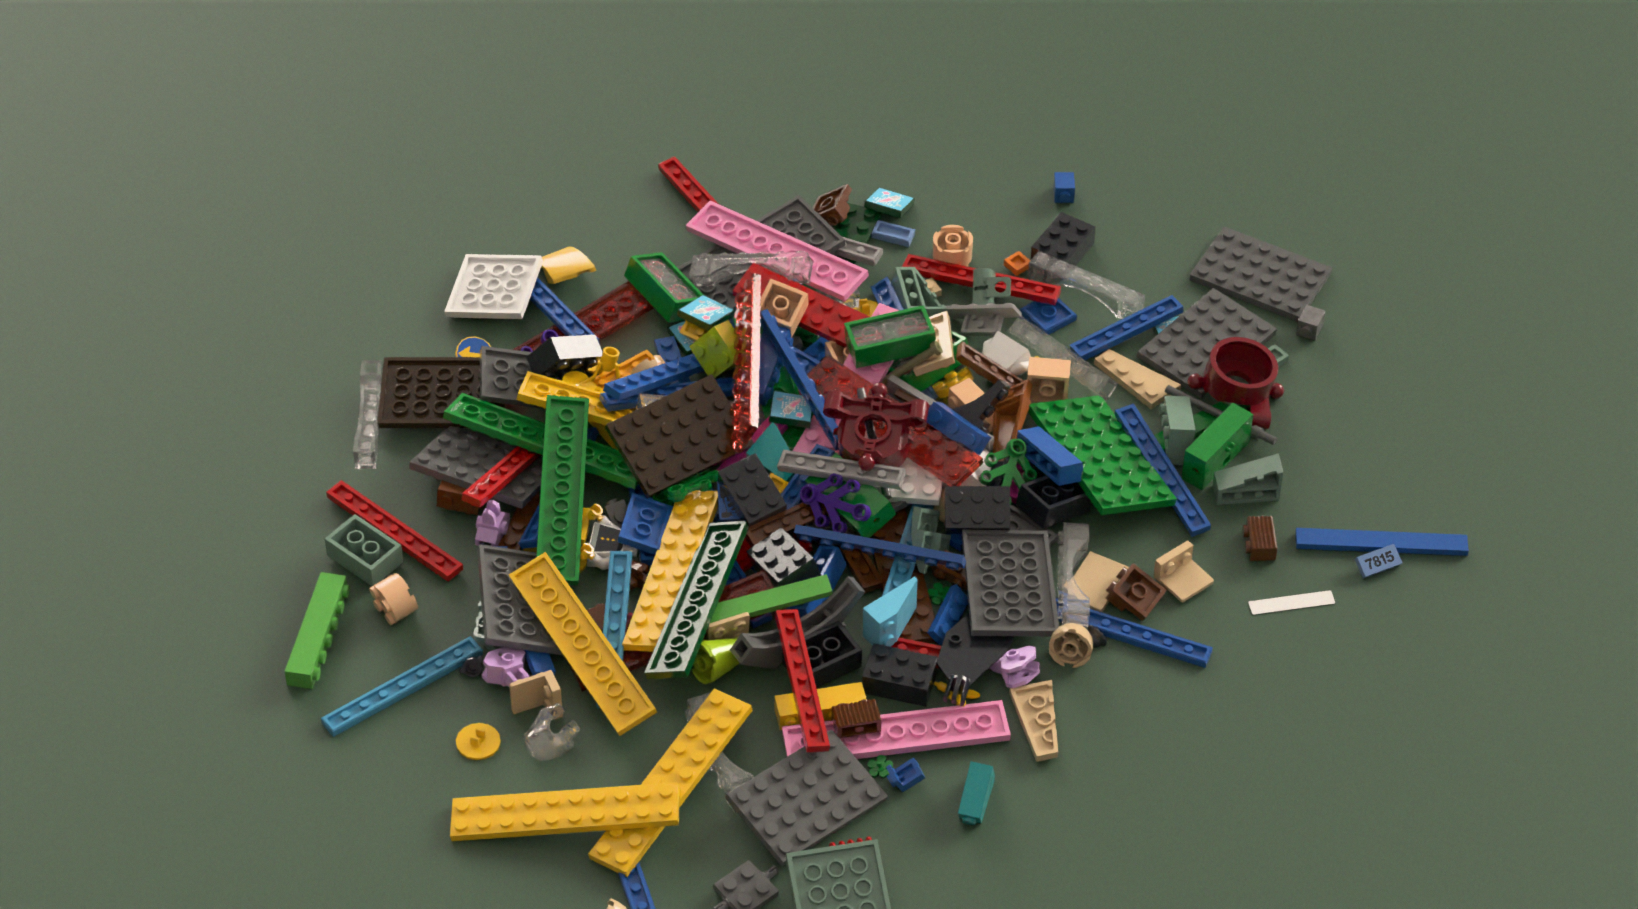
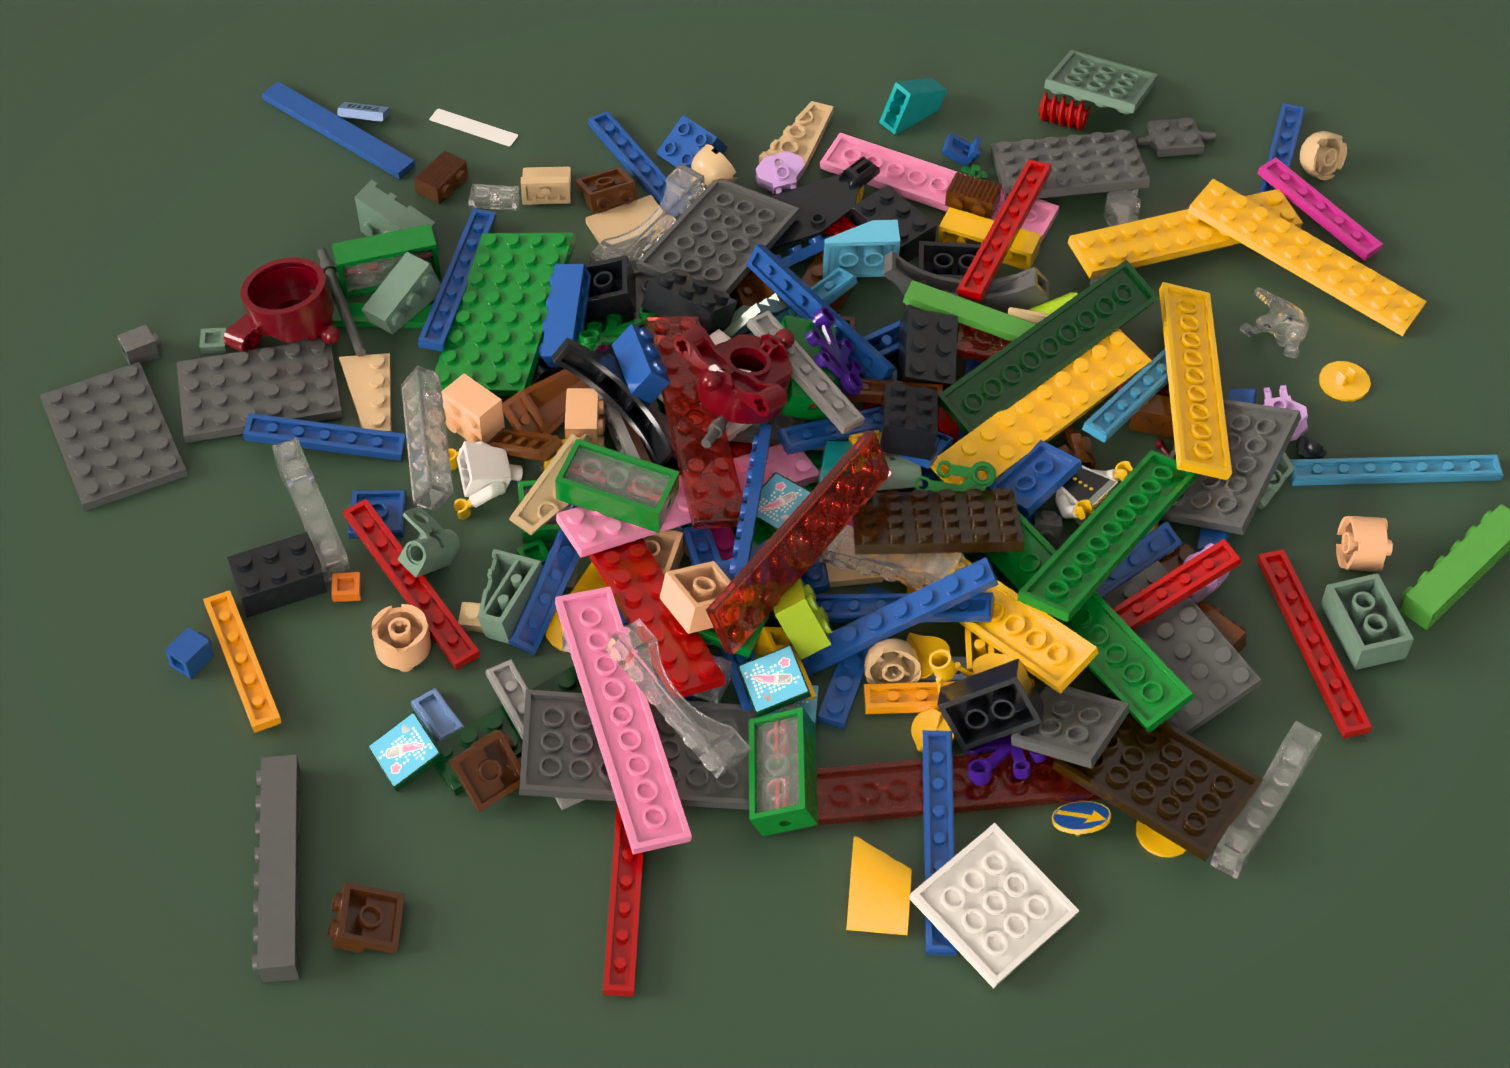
camera: 145 degrees left, 5 degrees up
(534, 692) = (1268, 369): tan bracket -> none
(582, 871) = (1320, 209): none -> dark pink plate
(827, 125) = (366, 919): none -> reddish brown plate
(899, 126) = (278, 869): none -> dark grey brick
(982, 319) = (465, 519): light grey bracket -> none
(1027, 198) = (242, 661): none -> light orange plate
(1111, 668) = (686, 141): none -> blue bracket
(1213, 551) = (494, 197): none -> clear plate

